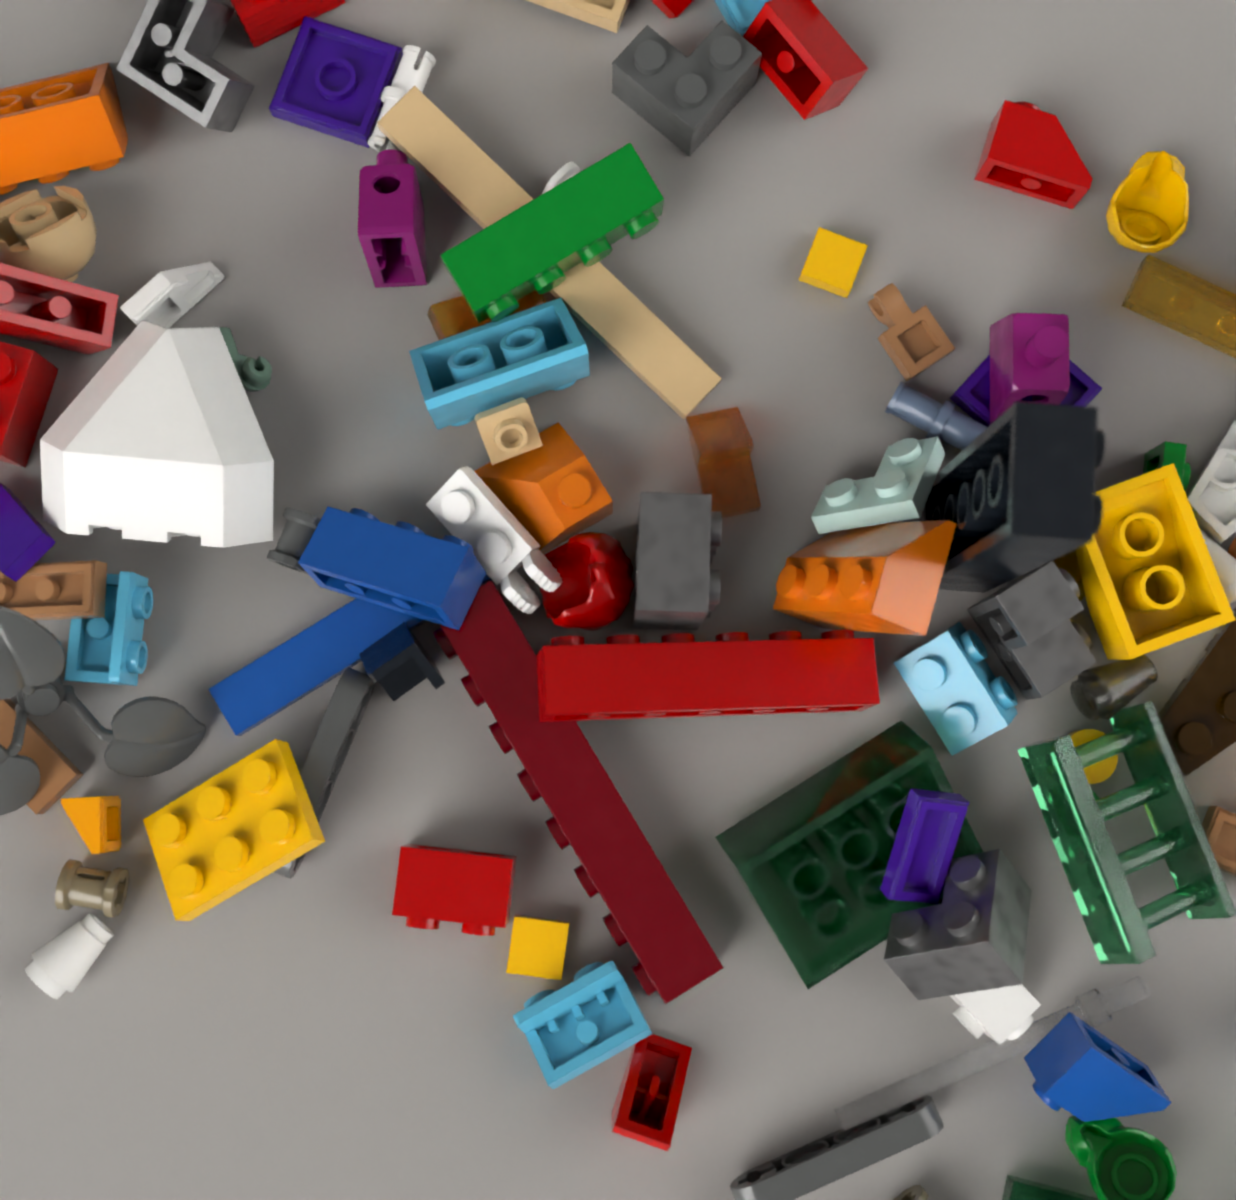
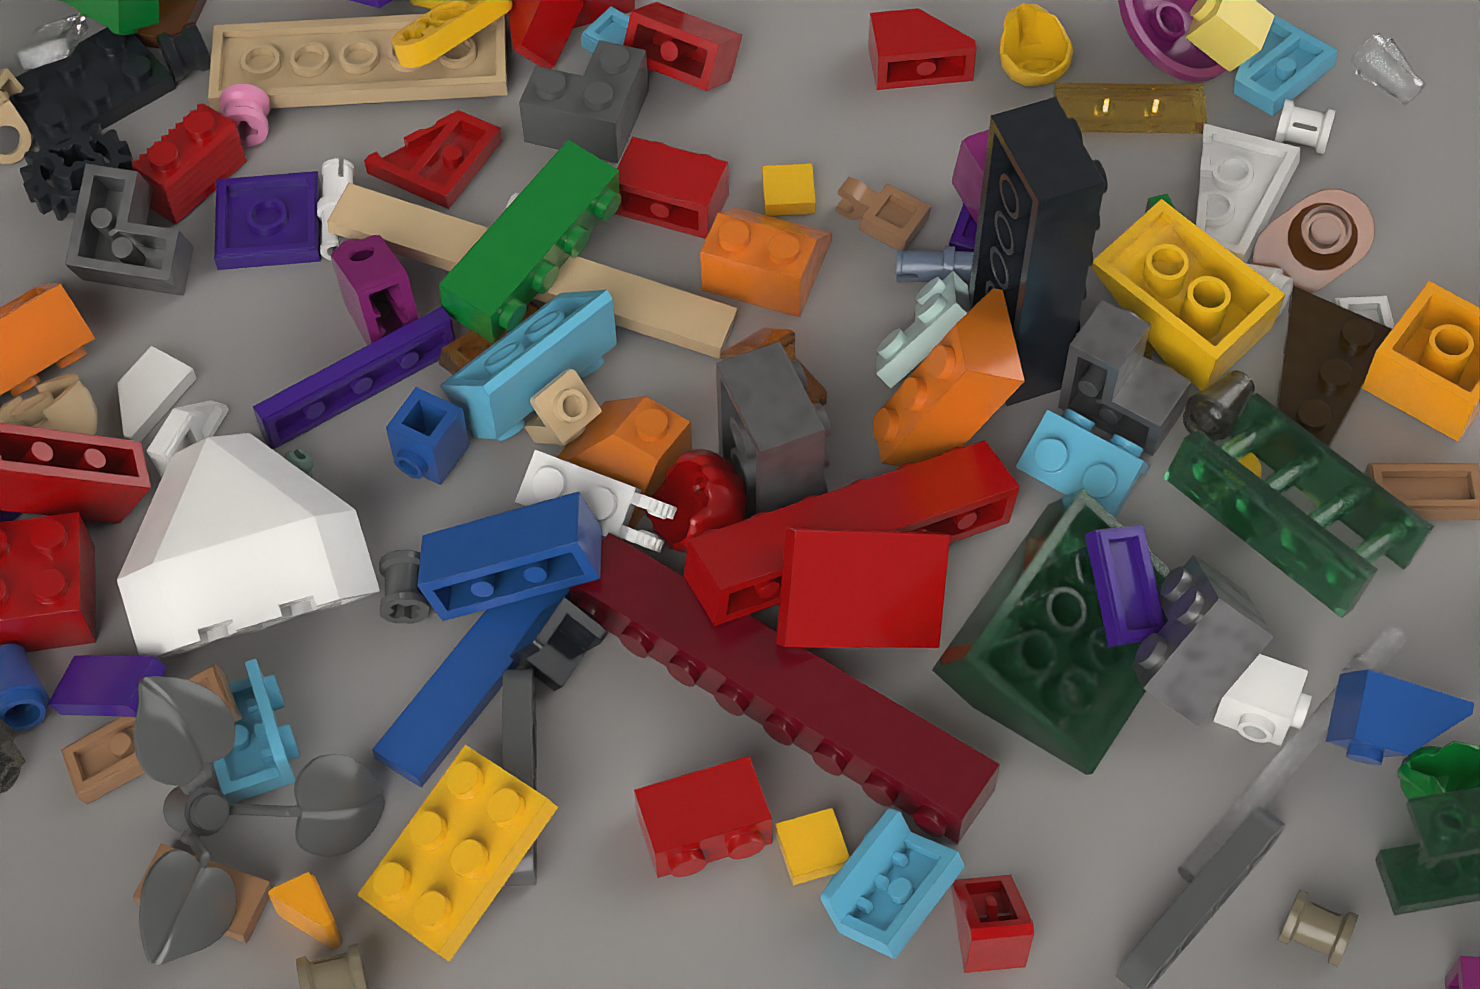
camera: 20 degrees left, 25 degrees down
(158, 230) = (151, 391): none -> white tile
(341, 302) = (354, 378): none -> dark purple tile
(374, 401) = (427, 436): none -> blue brick
(520, 82) = (438, 159): none -> red wing
(684, 748) = (862, 588): none -> red tile
(721, 214) = (671, 187): none -> red brick
(773, 331) = (762, 260): none -> orange slope

